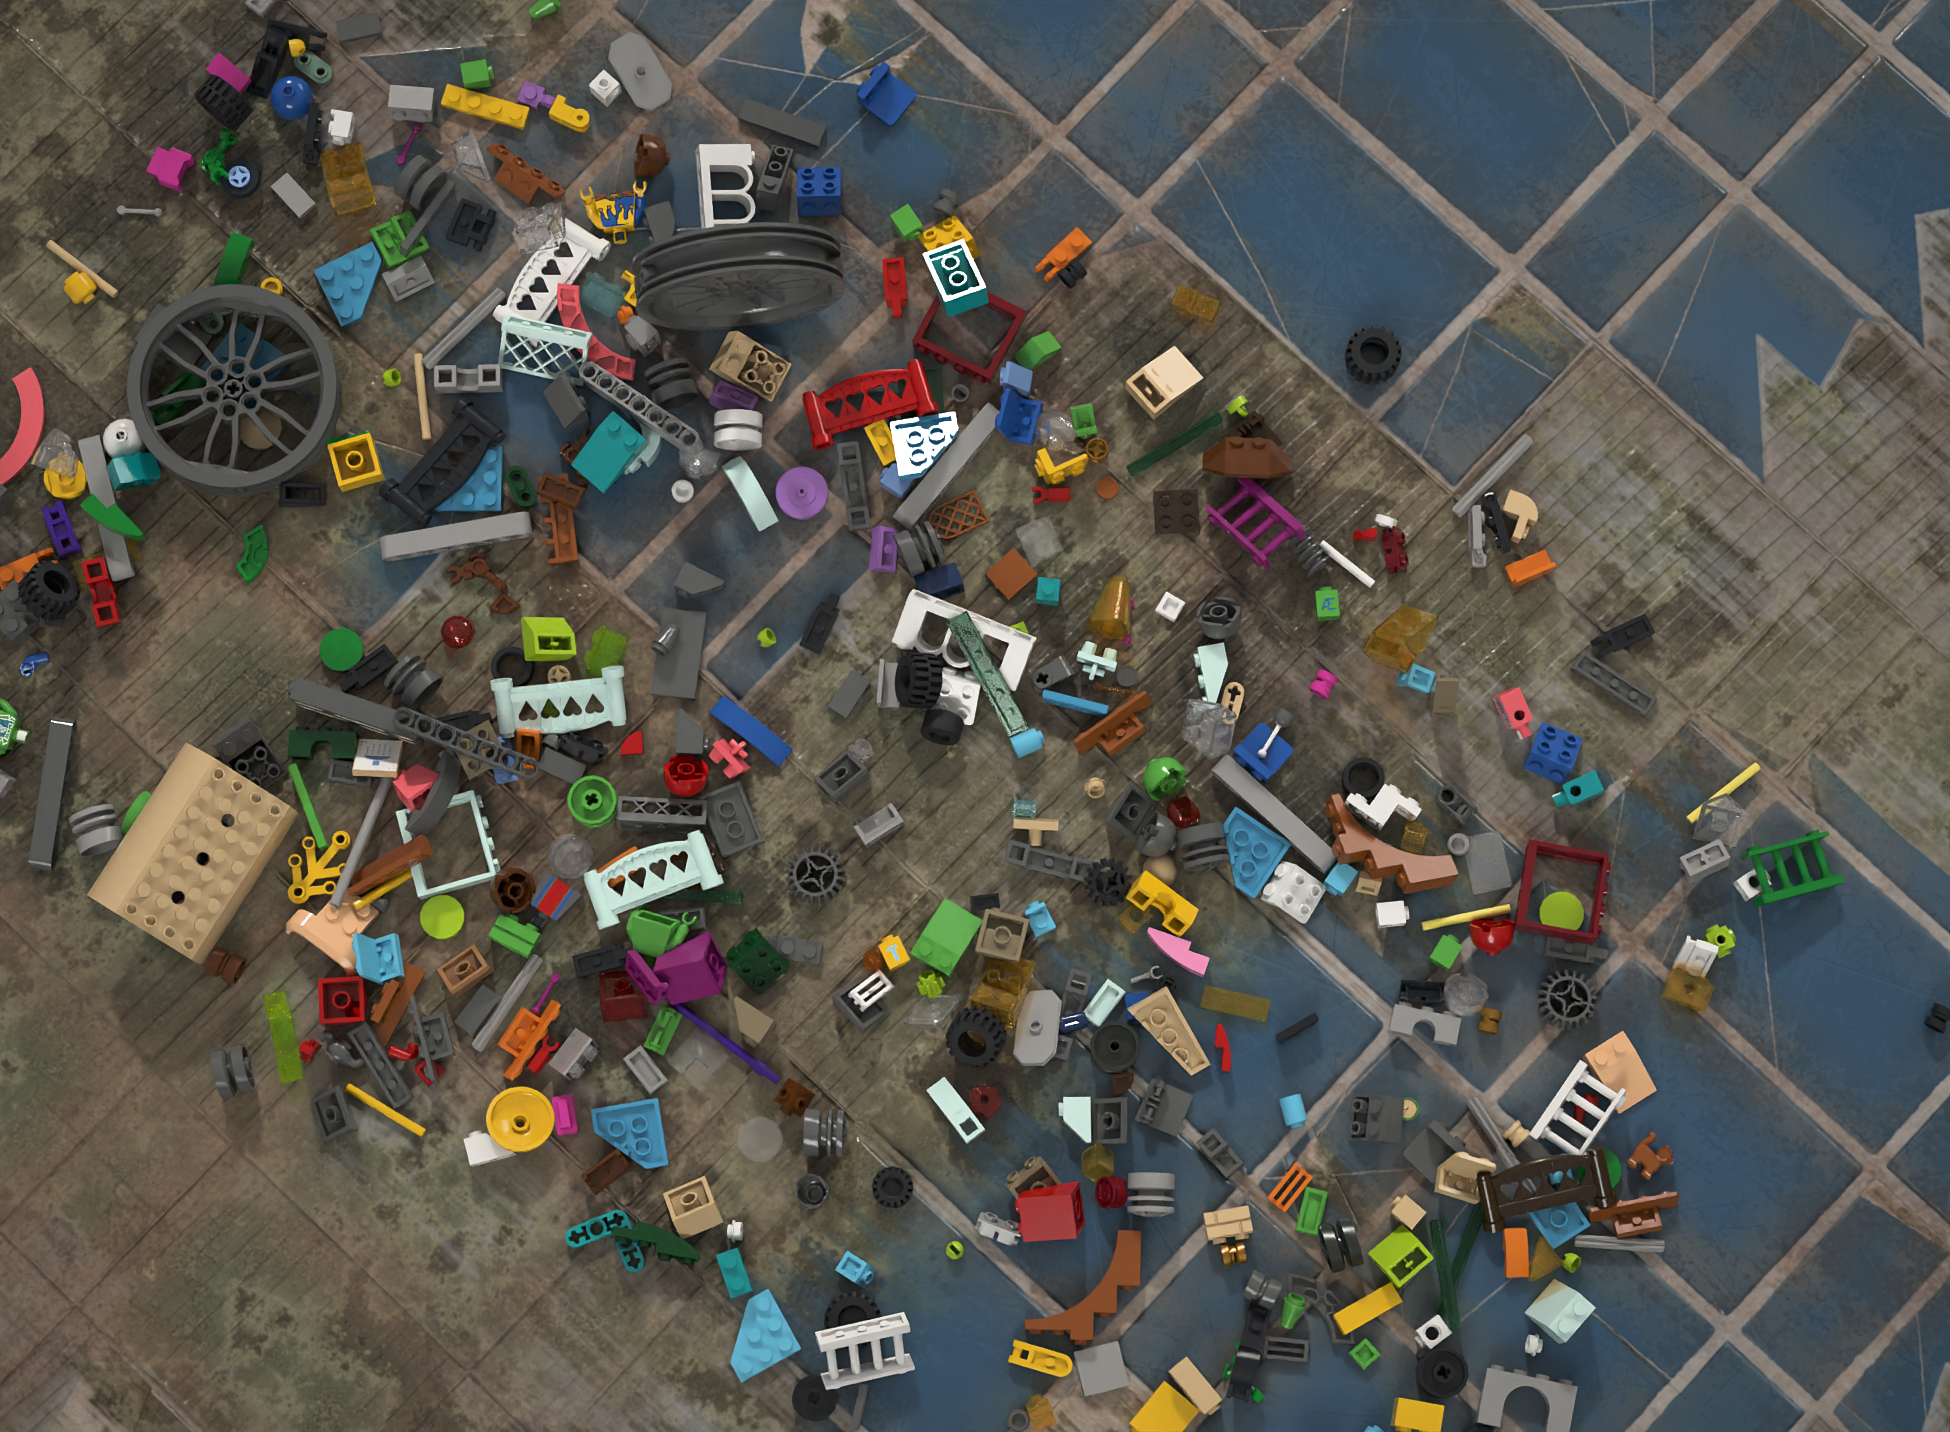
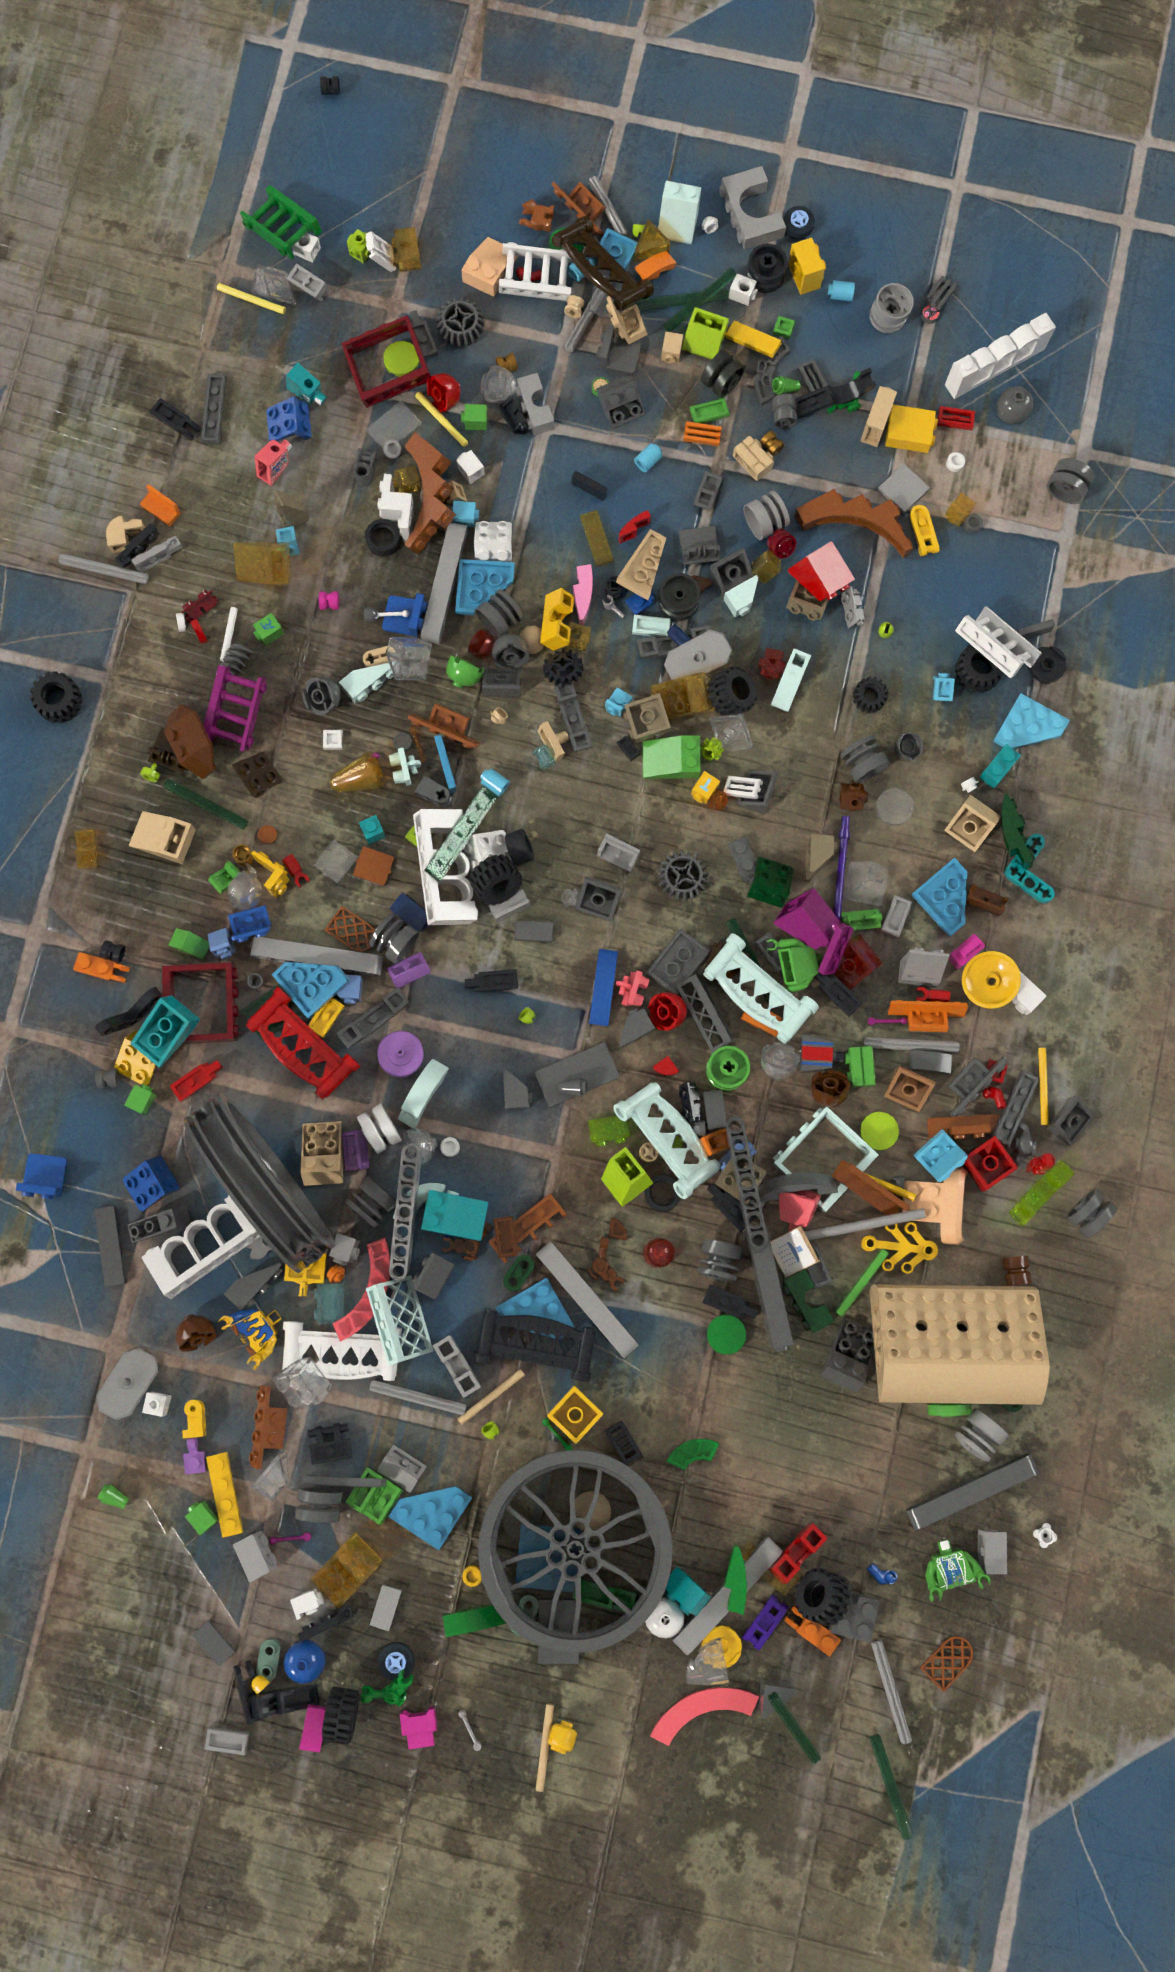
camera: 125 degrees left, 0 degrees up
(993, 253) = (132, 1016): none -> black beam

